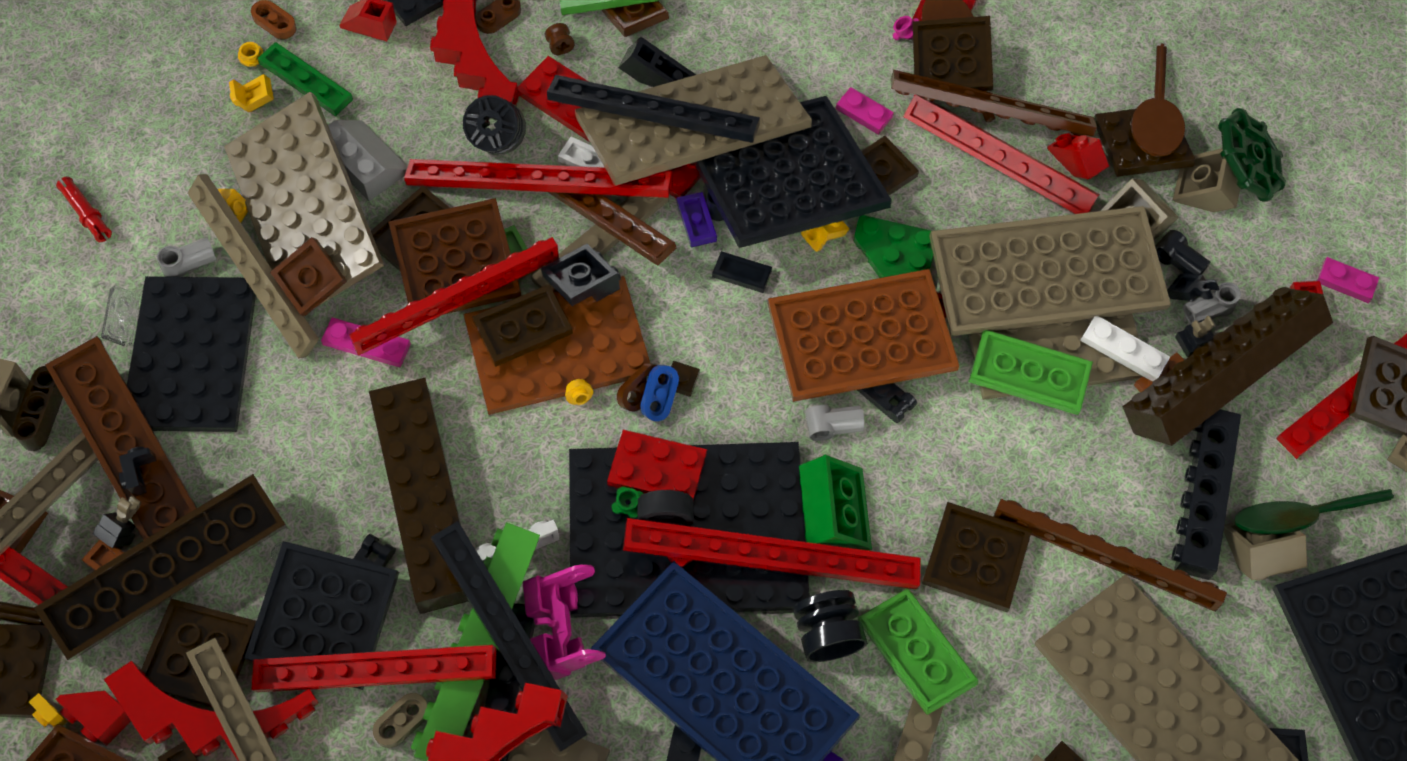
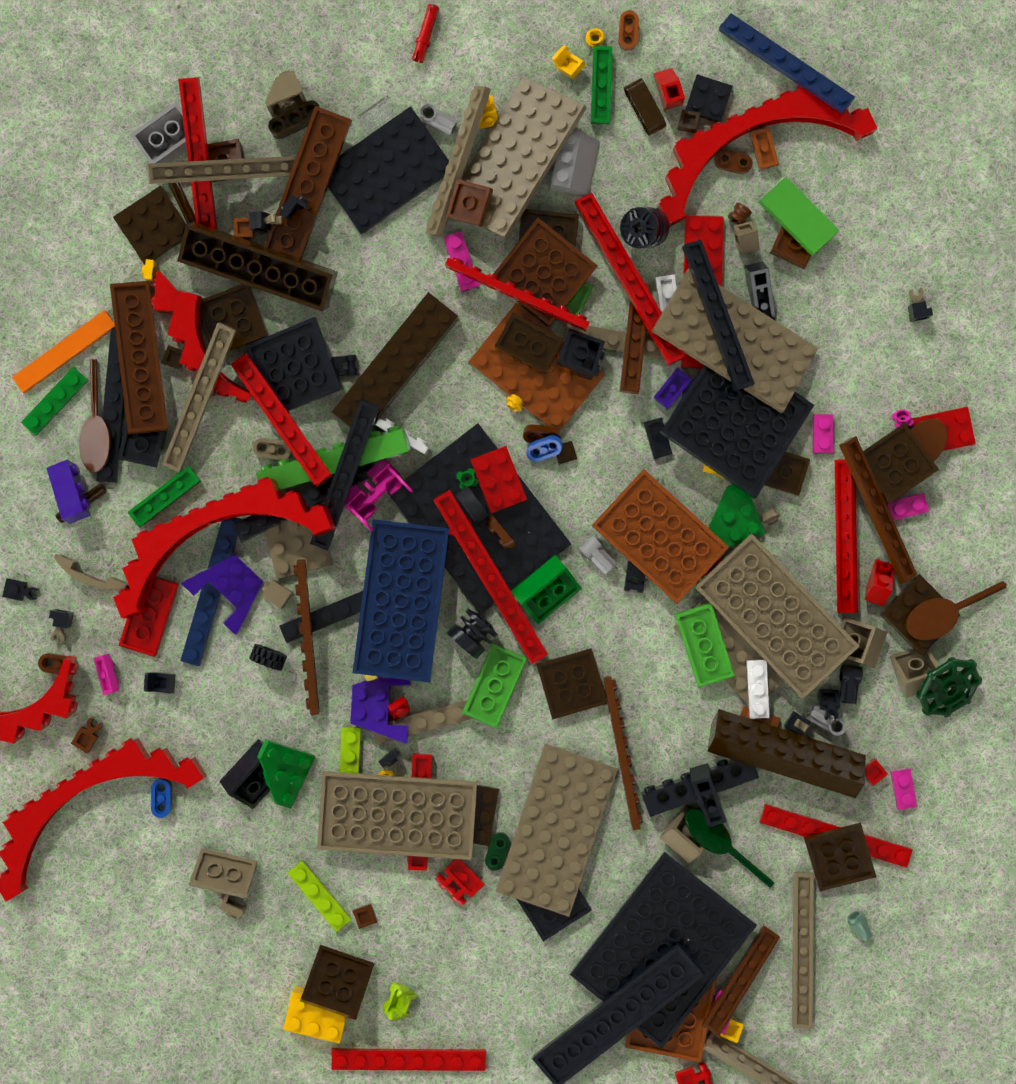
camera: 55 degrees right, 25 degrees up
(366, 53) = (645, 106): none -> dark brown beam
(419, 24) = (689, 121): none -> dark brown plate
(590, 45) = (746, 238): none -> dark tan brick
(717, 505) = (505, 540): none -> reddish brown plate
(923, 214) = (770, 517): none -> dark tan plate
(1009, 78) = (908, 506): none -> dark pink plate
(1229, 478) = (707, 794): none -> black slope

